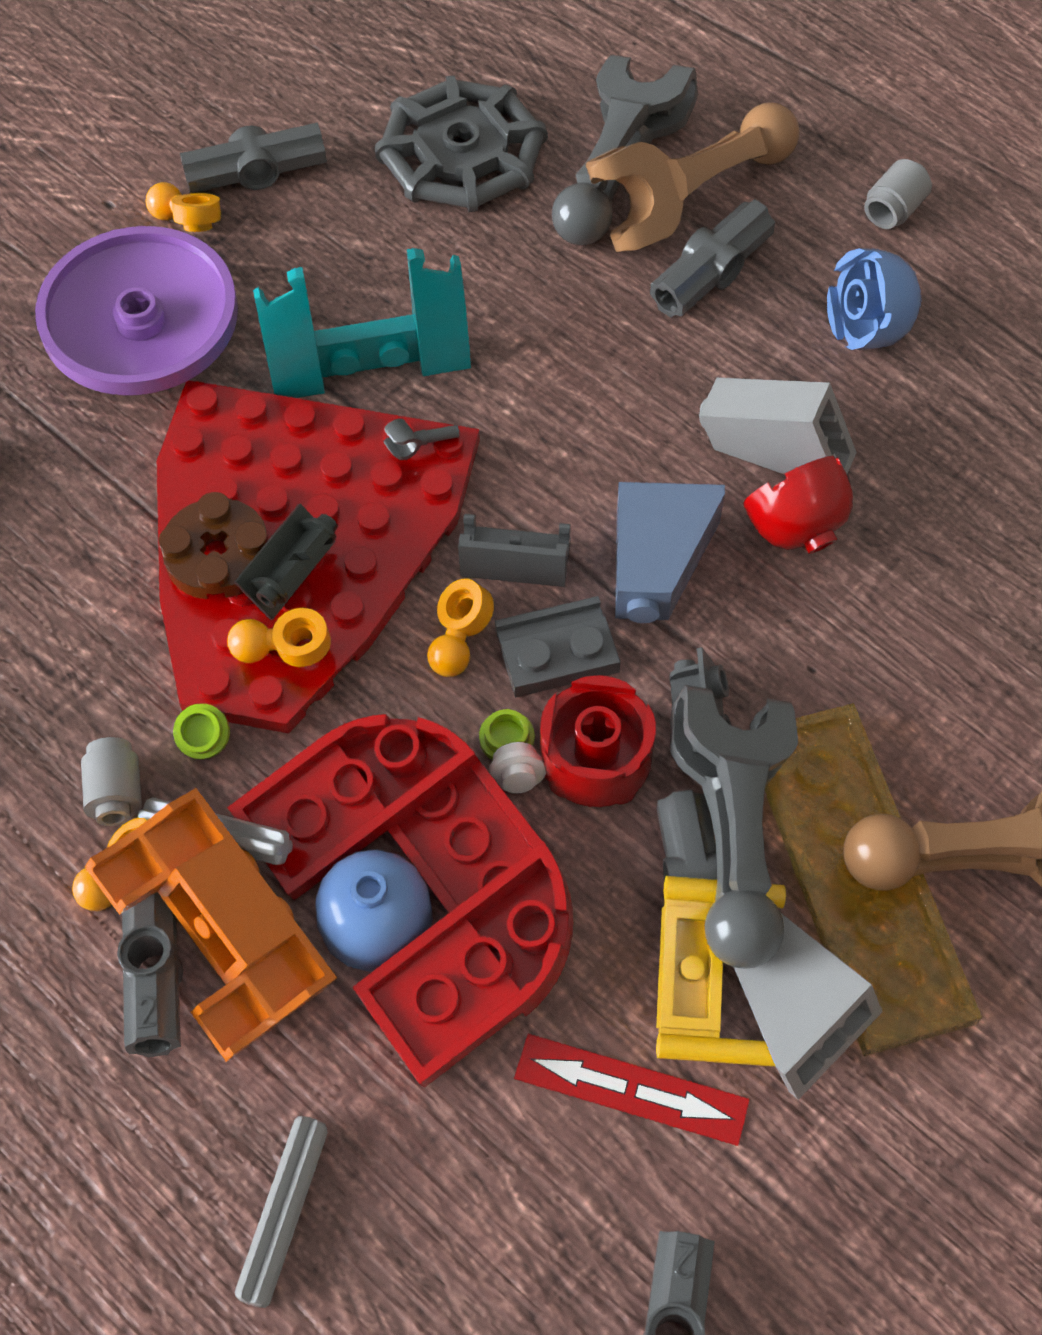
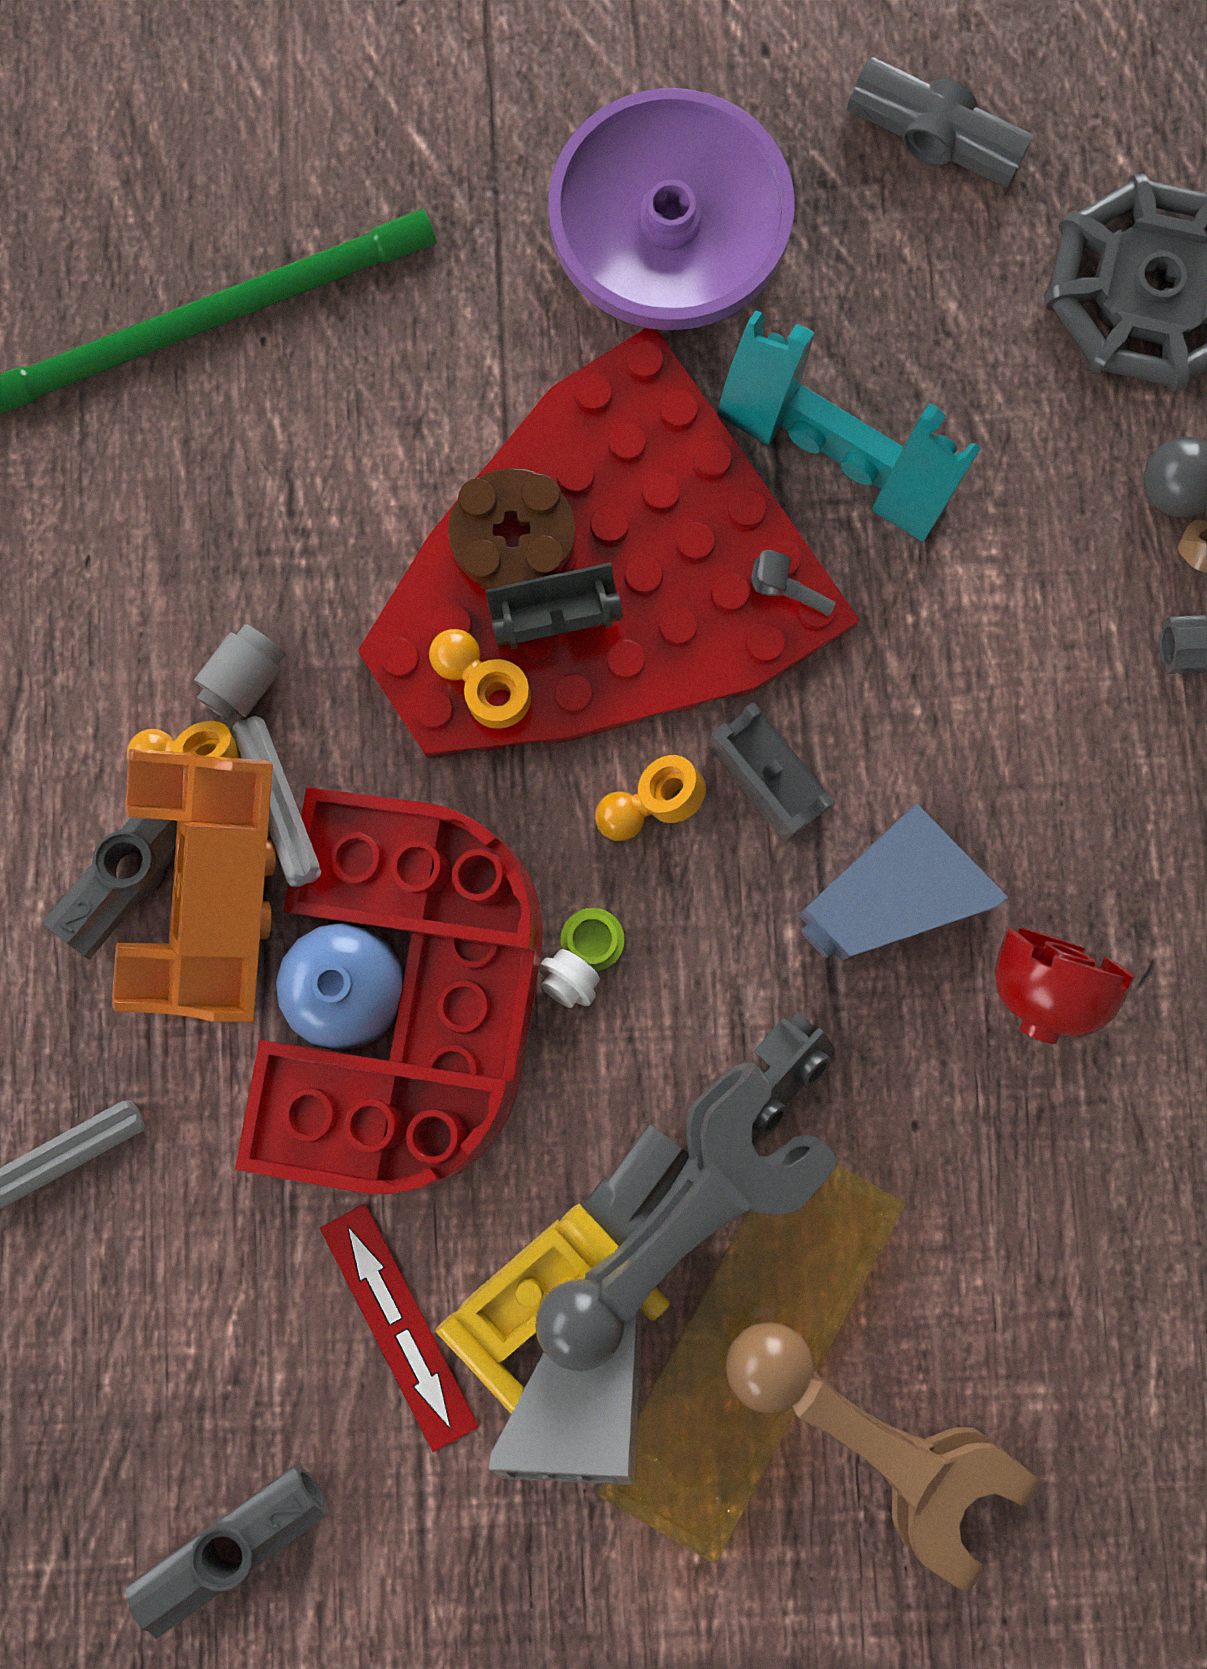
camera: 45 degrees right, 20 degrees up
(192, 210) = (828, 133): light orange plate -> none
(201, 731) = (352, 693): lime plate -> none
(556, 646) = (718, 896): dark grey plate -> none
(603, 770) = (688, 1032): red brick -> none
(776, 422) = (1126, 880): light grey slope -> none

